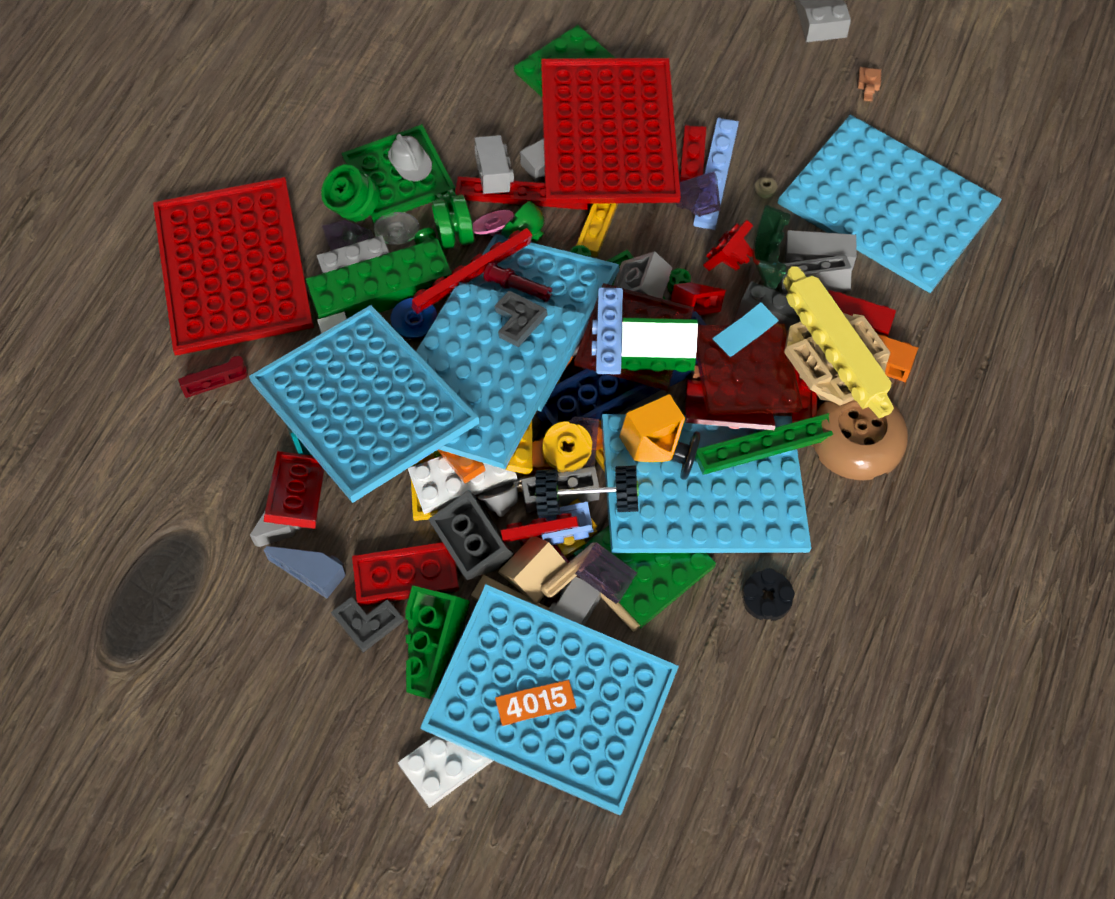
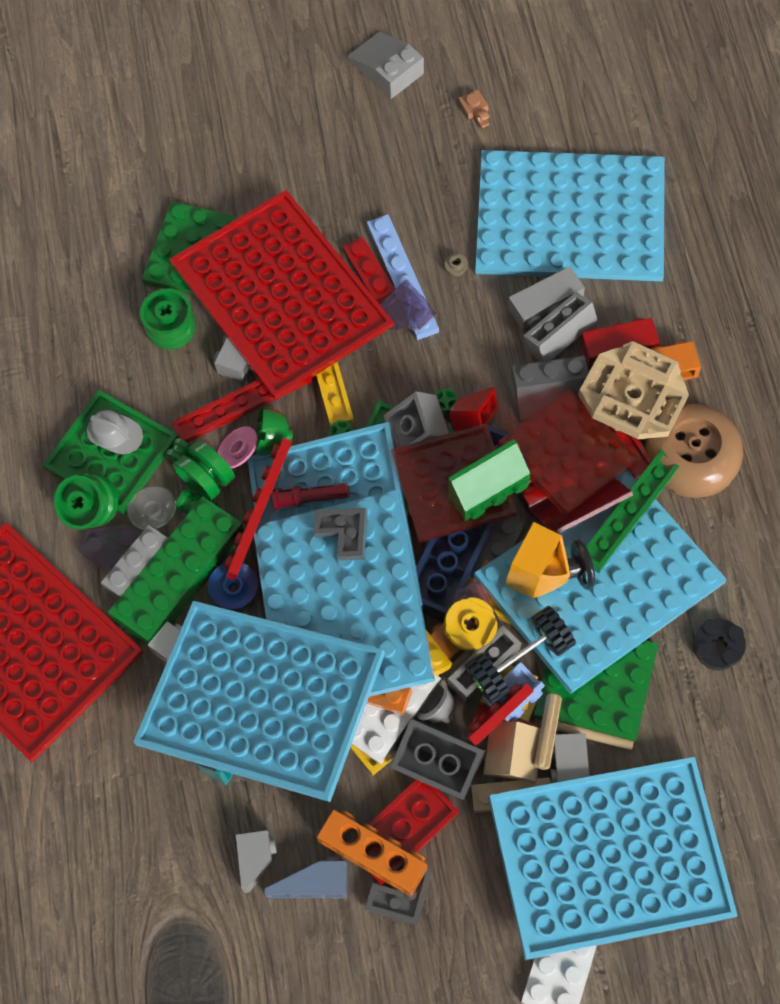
camera: 30 degrees left, 5 degrees up
(213, 377) = (87, 761): dark red plate -> none
(294, 490) = (253, 820): red plate -> none
(377, 607) = (404, 880): none -> orange brick
(433, 630) = (466, 866): green wedge -> none
(493, 164) = (198, 391): light grey brick -> none
(510, 103) = (168, 318): none -> green wheel
(535, 702) = (604, 870): orange sticker -> none
(606, 573) = (580, 715): clear purple plate -> none
(608, 331) = (436, 496): light blue bracket -> none
(731, 248) = (469, 343): red plate -> none
(745, 329) = (545, 417): medium azure sticker -> none
(766, 246) = (503, 327): clear green windscreen -> none
(839, 341) = (631, 379): light yellow hinge -> none

